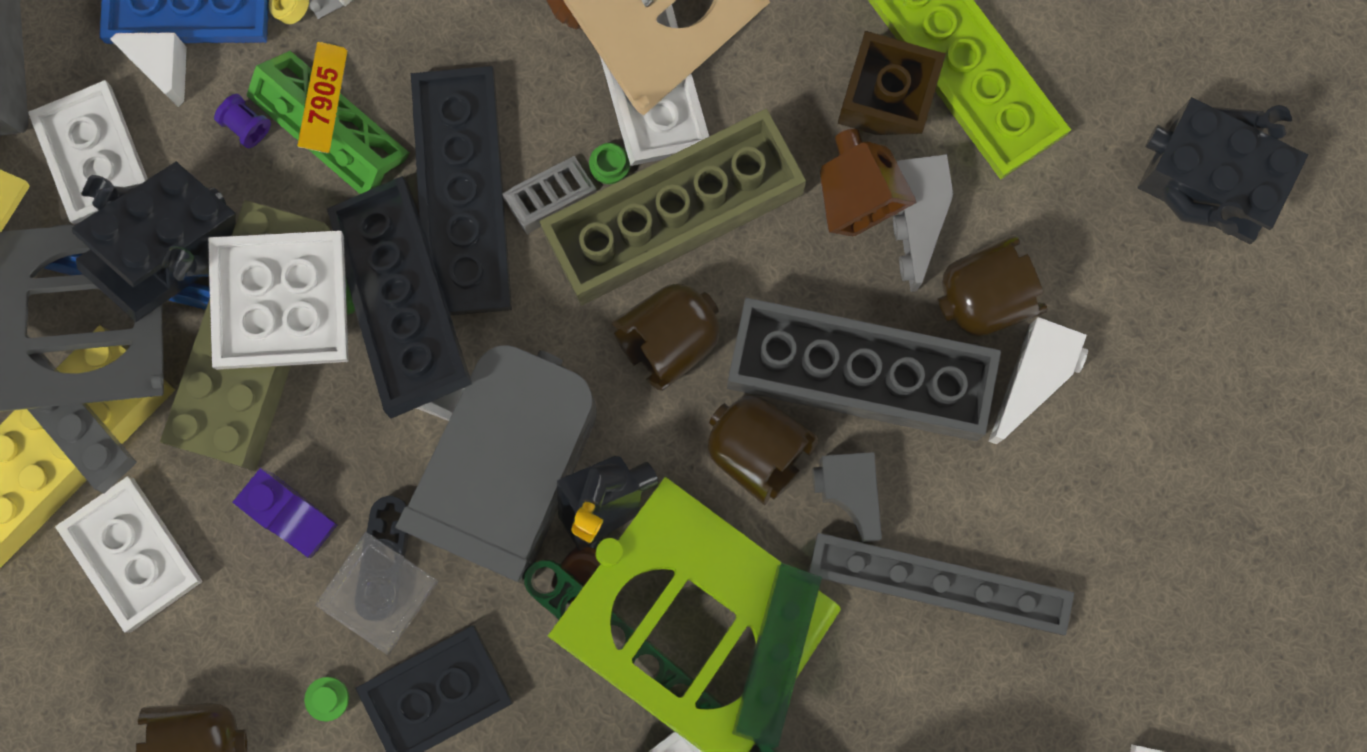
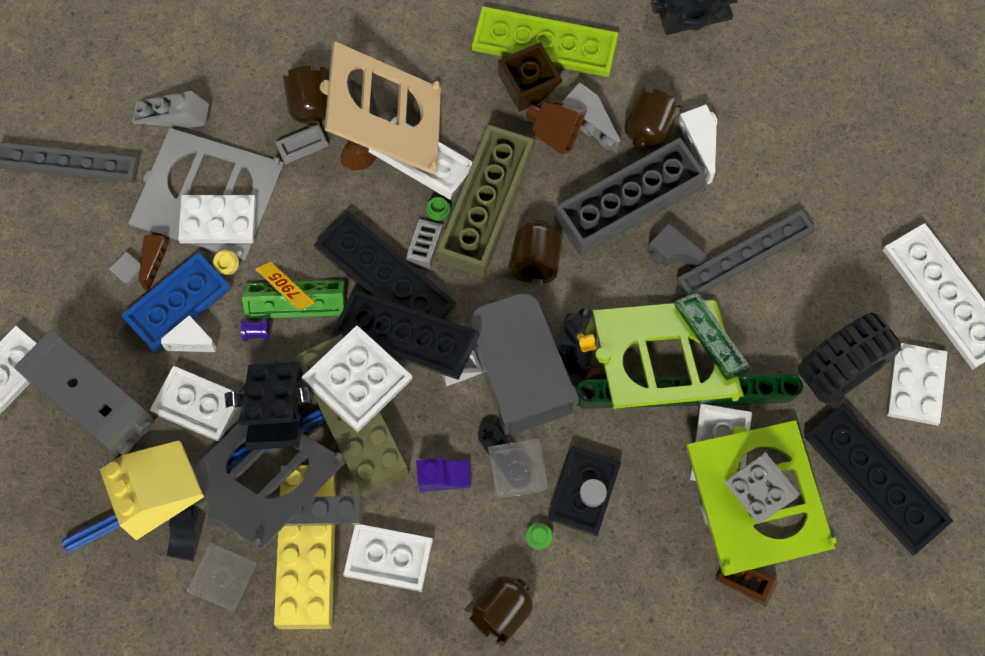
camera: 45 degrees left, 10 degrees down
(435, 711) = (593, 493): none -> light grey tile
(758, 445) = (617, 263): dark brown cylinder -> none

